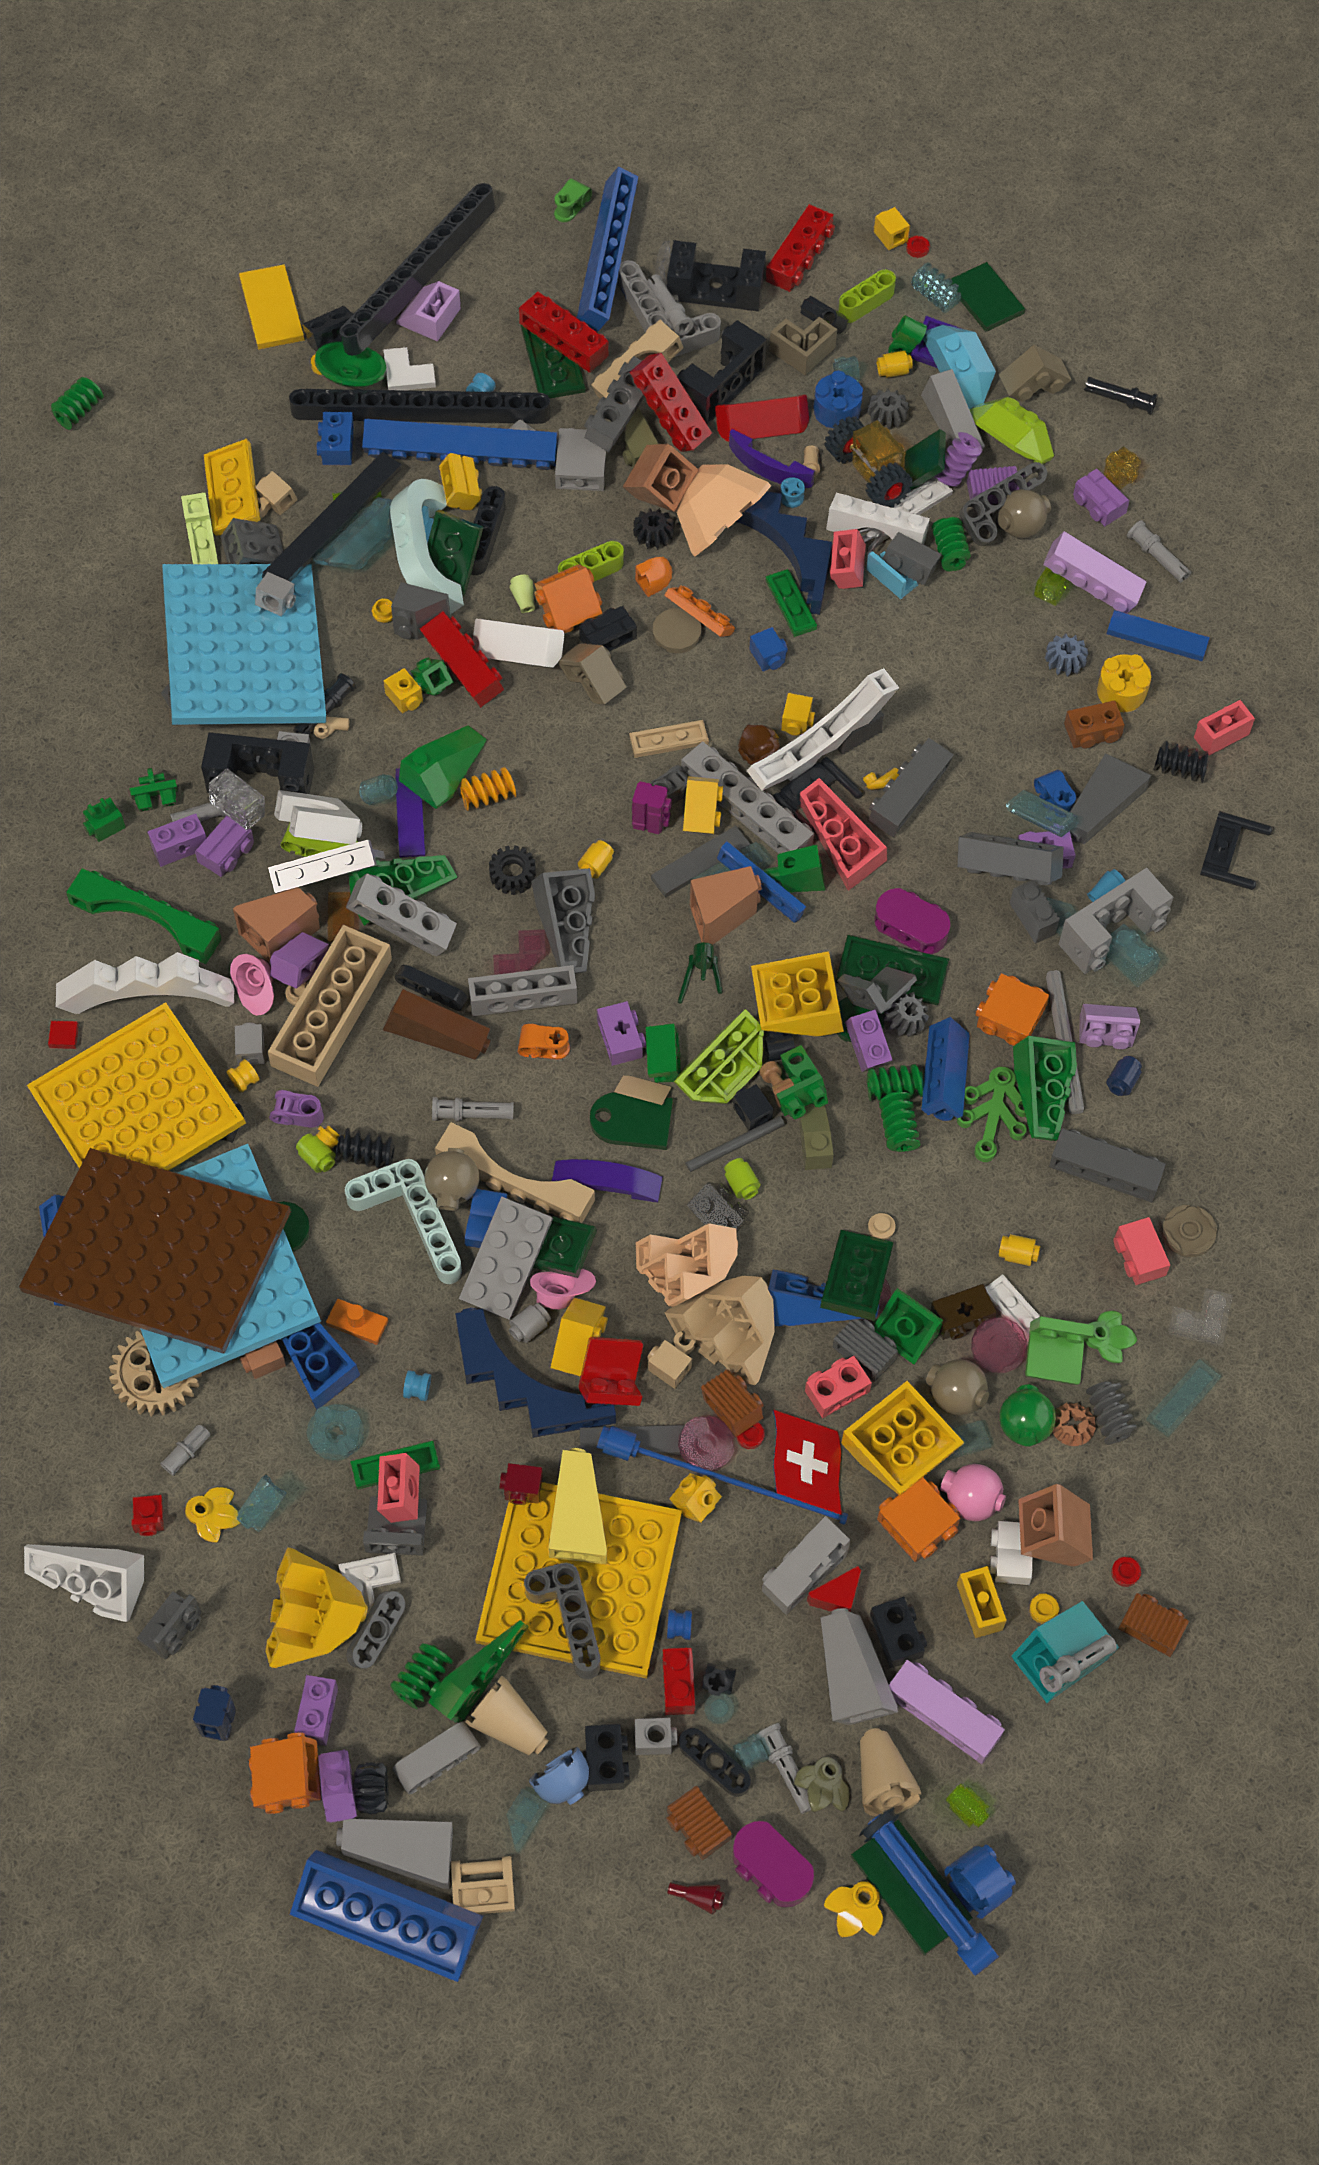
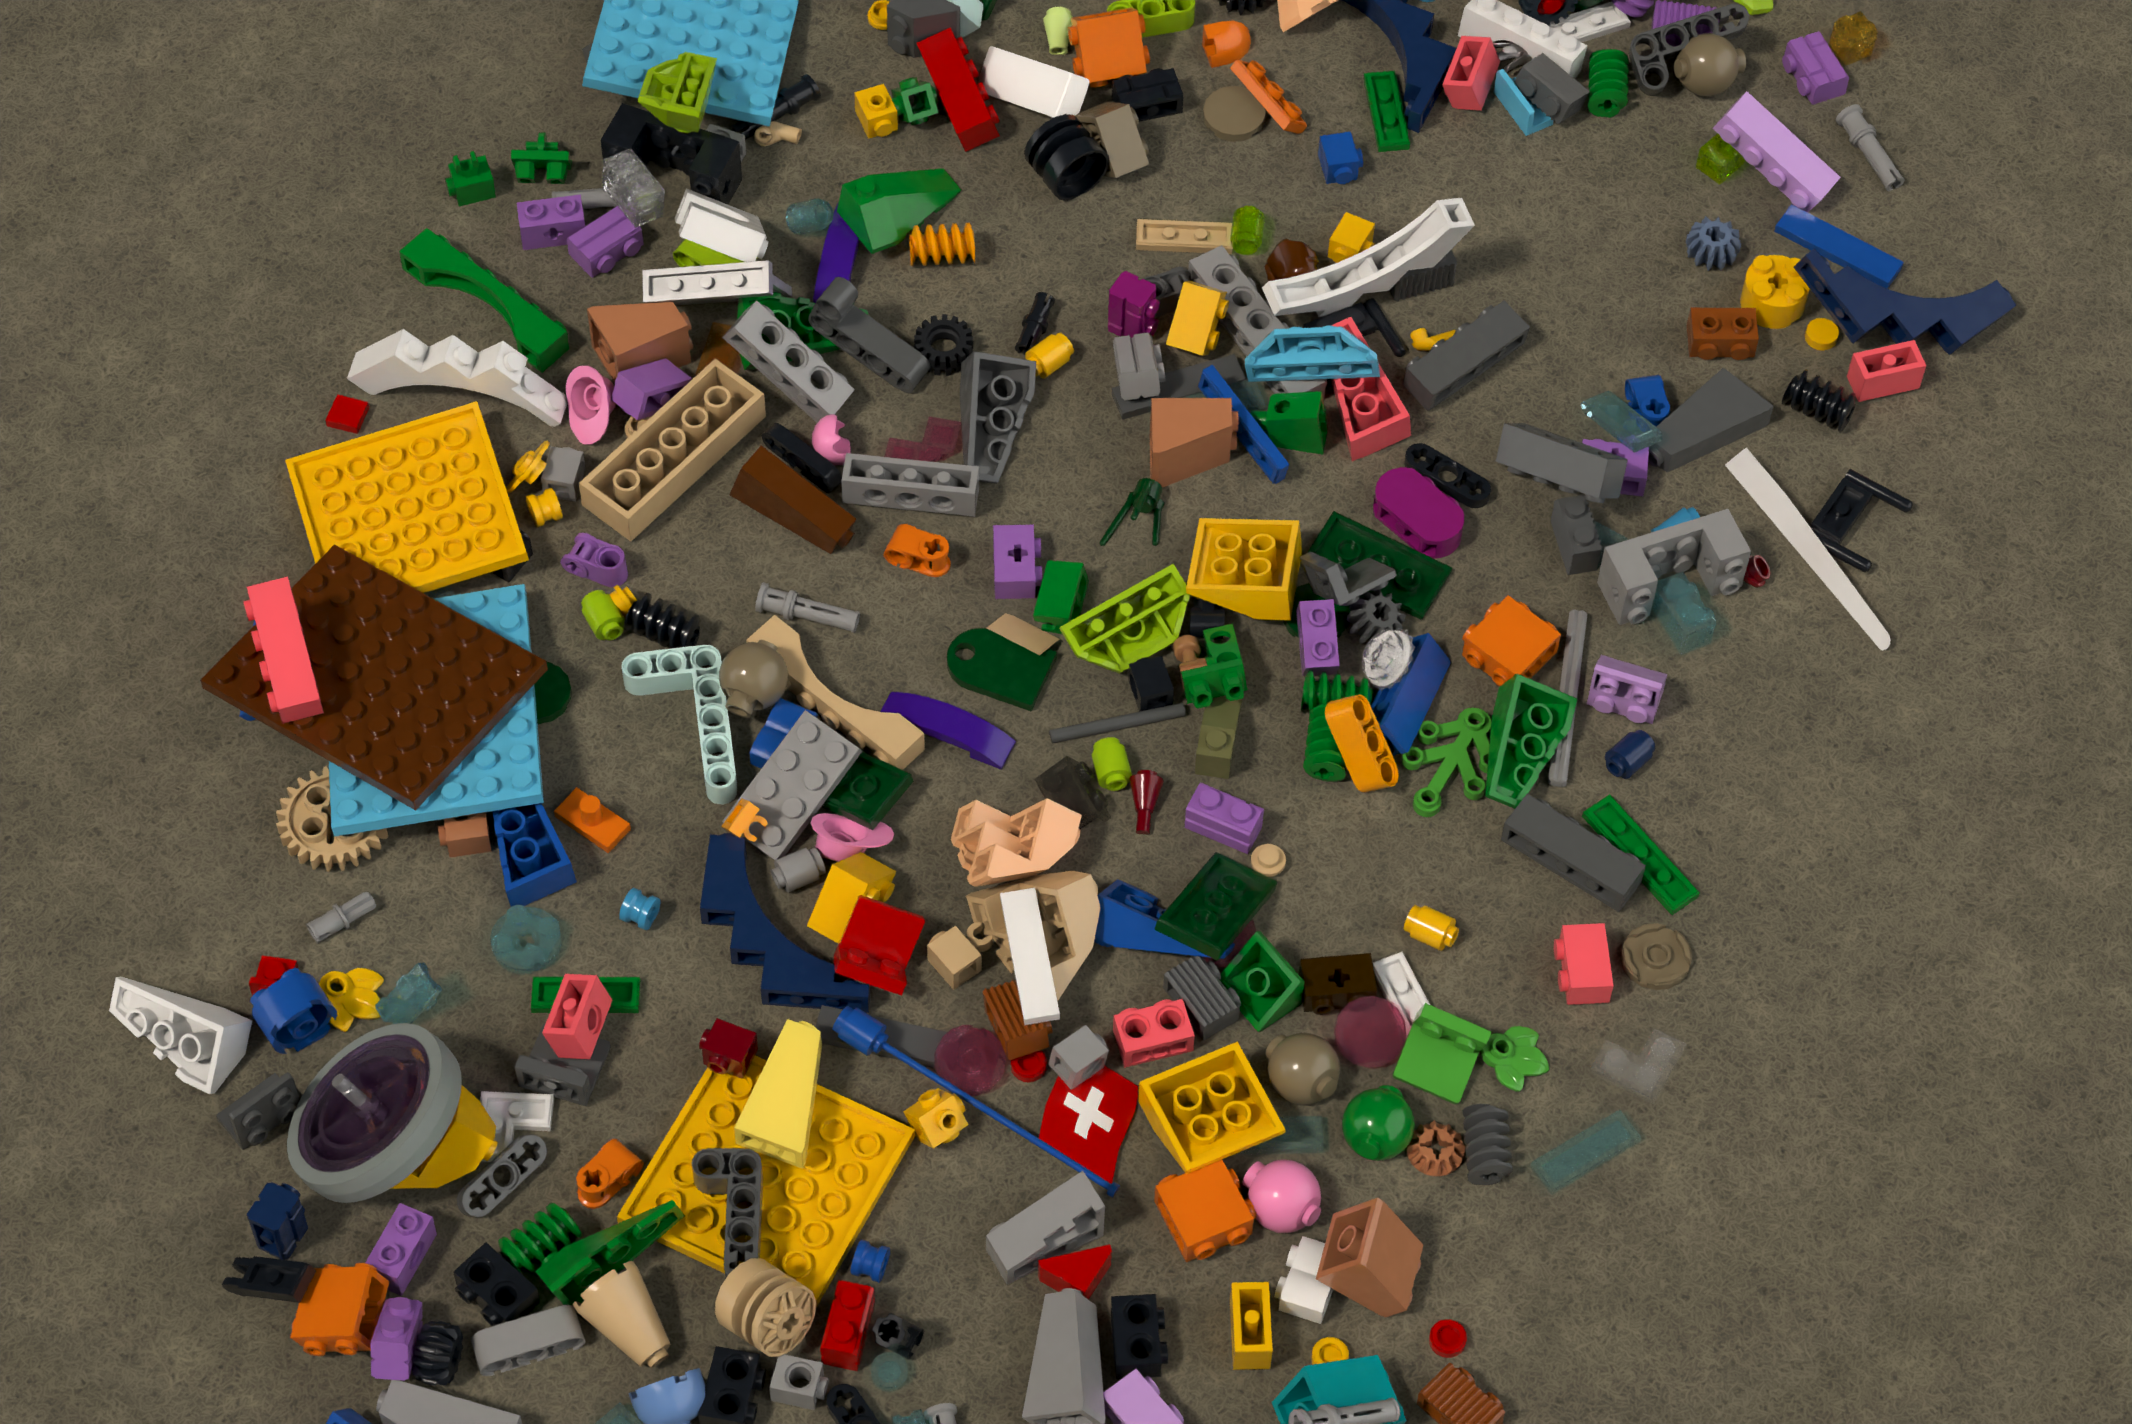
camera: 15 degrees right, 5 degrees down
(83, 1250) = (284, 650): none -> coral wedge
(173, 1539) = (293, 1011): none -> blue brick
(222, 1046) = (528, 467): none -> yellow plate
(223, 1762) = (270, 1278): none -> black hinge
(253, 713) = (679, 90): none -> lime wedge
(267, 1609) = (374, 1113): none -> wheel
(404, 1716) = (502, 1284): none -> black brick
(448, 970) = (828, 441): none -> bright pink hair
(454, 880) = (865, 338): none -> dark grey beam
(457, 1603) = (608, 1169): none -> orange piece
(476, 1295) = (741, 818): none -> light orange tile
(563, 696) = (1066, 157): none -> black wheel
(576, 835) = (1035, 322): none -> black pin
(616, 1687) = (765, 1307): none -> tan wheel
(667, 853) = (1138, 366): none -> light grey brick
(716, 723) = (1247, 230): none -> clear neon green brick
(732, 1352) = (1029, 956): none -> white tile
(774, 1195) = (1145, 791): none -> dark red cone
(789, 1421) = (1078, 1056): none -> light grey brick
(800, 816) = (1311, 355): none -> medium azure wedge
(839, 1201) = (1223, 818): none -> medium lavender brick
(927, 1045) = (1387, 657): none -> clear piece
(928, 1118) = (1361, 743): none -> light orange beam
(933, 881) = (1444, 463): none -> black beam
(1166, 708) = (1821, 334): none -> yellow tile
(1177, 909) = (1757, 571): none -> dark red plate
(1177, 1167) = (1660, 874): none -> green tile
(1195, 681) = (1863, 306): none -> dark blue arch
(1197, 871) = (1804, 540): none -> white sticker

